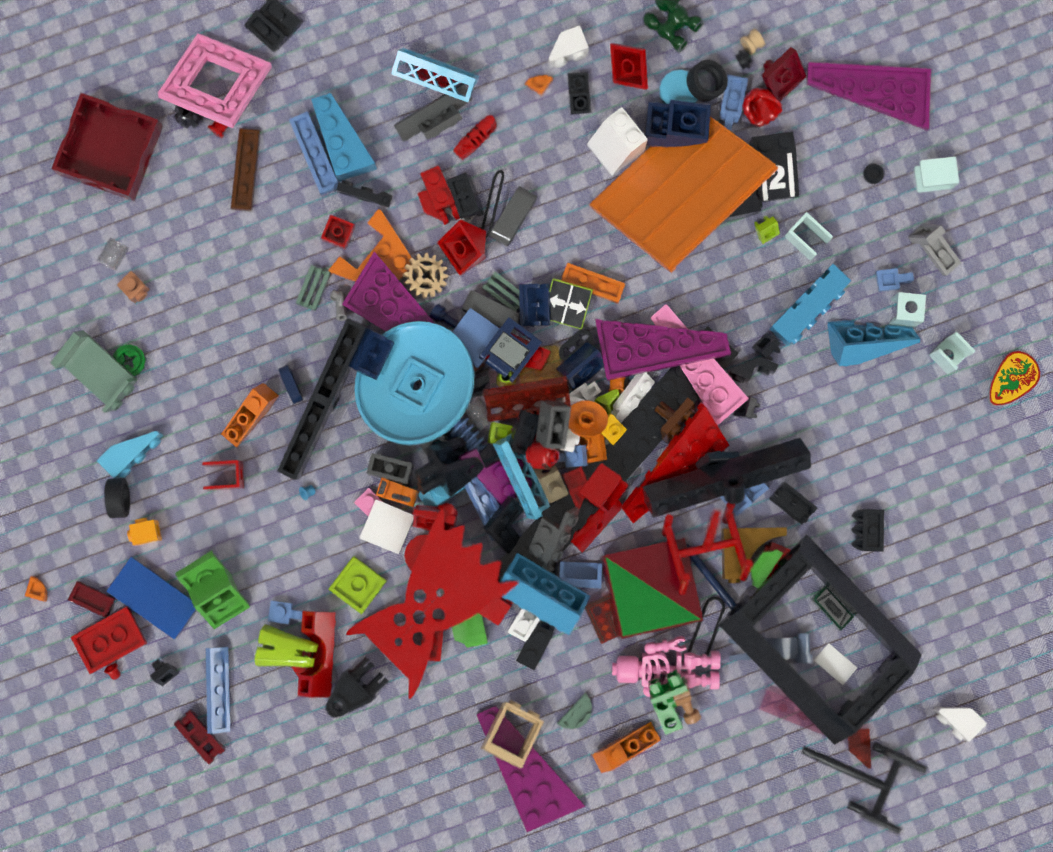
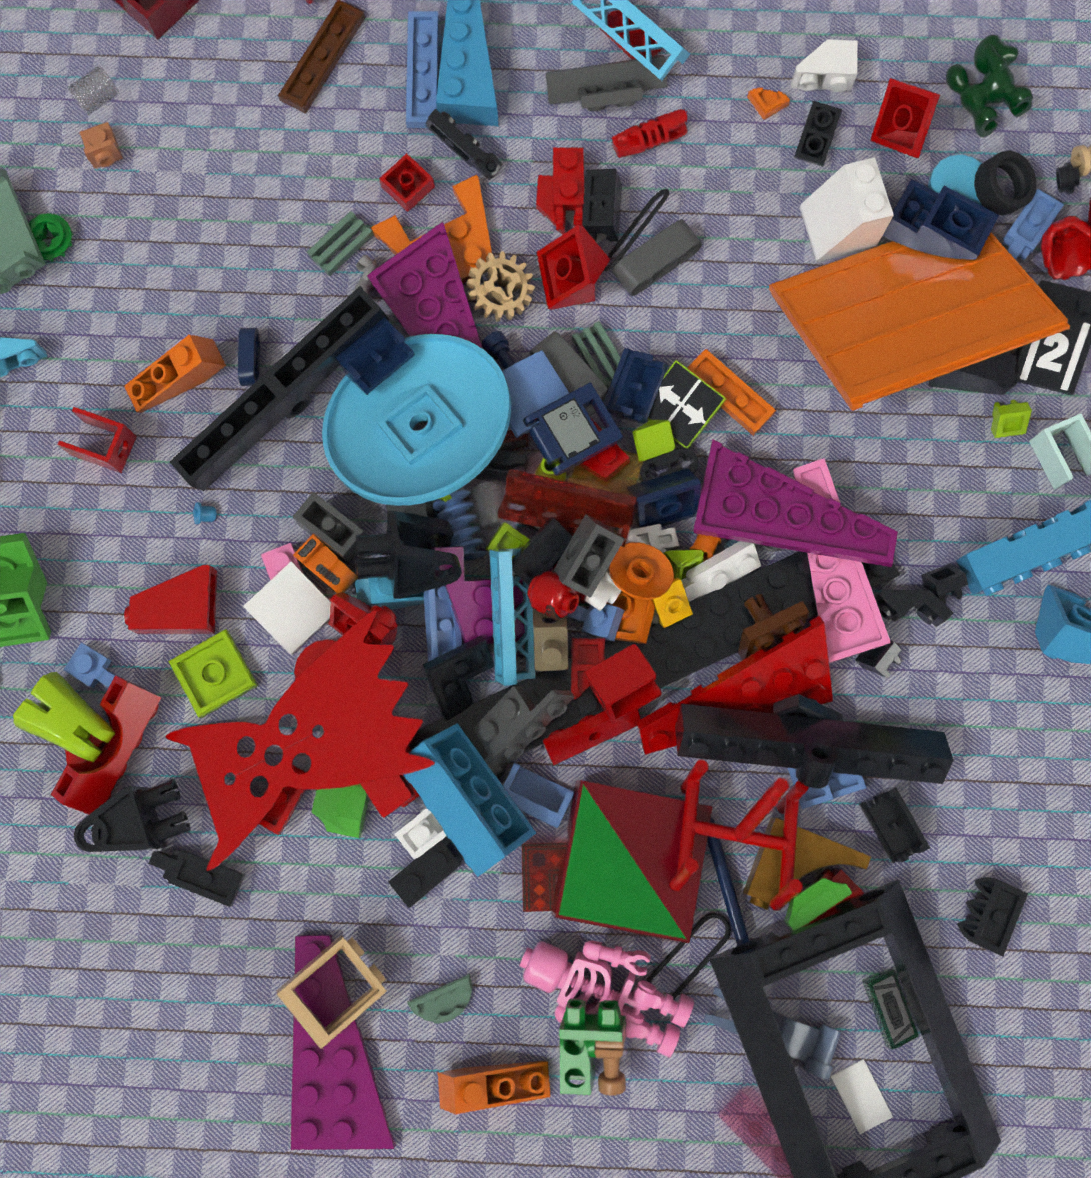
camera: 25 degrees right, 5 degrees down
(318, 554) = (177, 605): none -> red slope
(403, 706) = (191, 874): none -> black hinge
(559, 332) = (653, 439): none -> lime slope

